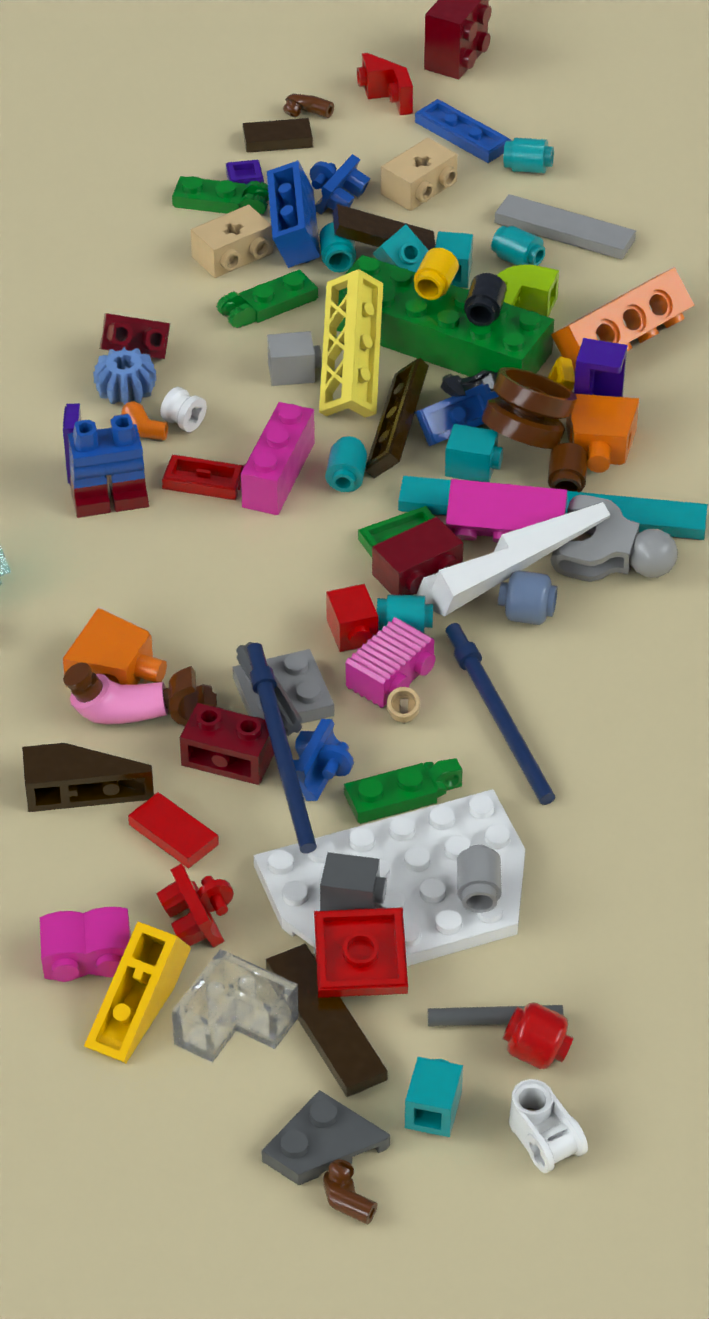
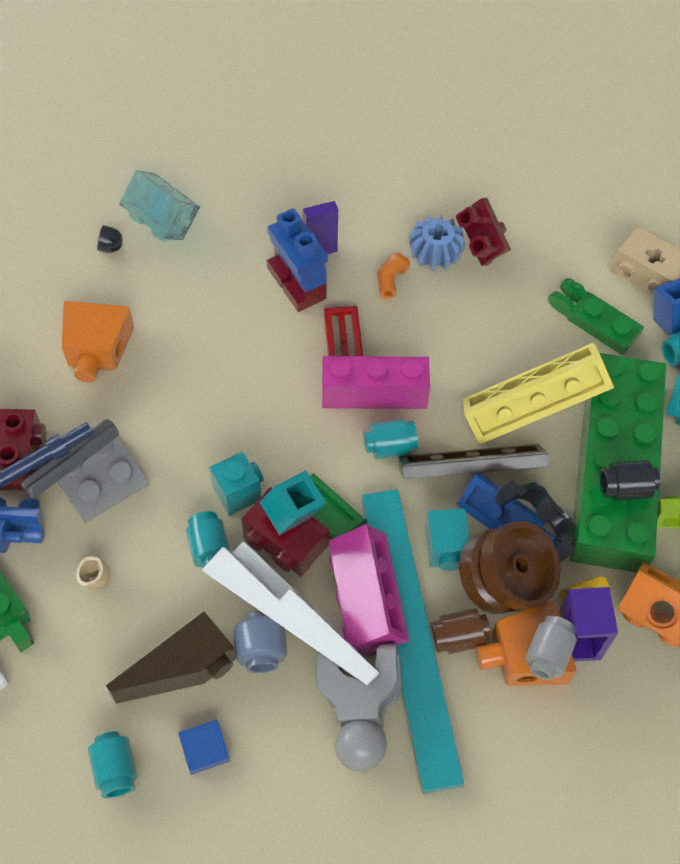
camera: 70 degrees right, 15 degrees up
(114, 703) = (46, 367): piece -> none
(183, 409) = (413, 295): white wheel -> none
(292, 358) = (514, 352): light grey brick -> none
(349, 569) = (236, 482): none -> teal brick
(351, 616) = (189, 496): red brick -> none
(389, 661) = (143, 547): dark pink brick -> none
(412, 514) = (292, 502): none -> teal brick
(435, 273) = (646, 427): yellow brick -> none
(470, 659) = (176, 612): dark blue bar -> none
(521, 649) = (180, 662): none -> dark brown slope
(611, 722) = (112, 765): none -> teal brick
(612, 665) = (204, 747): none -> blue tile
(619, 396) = (551, 648): none -> light grey brick

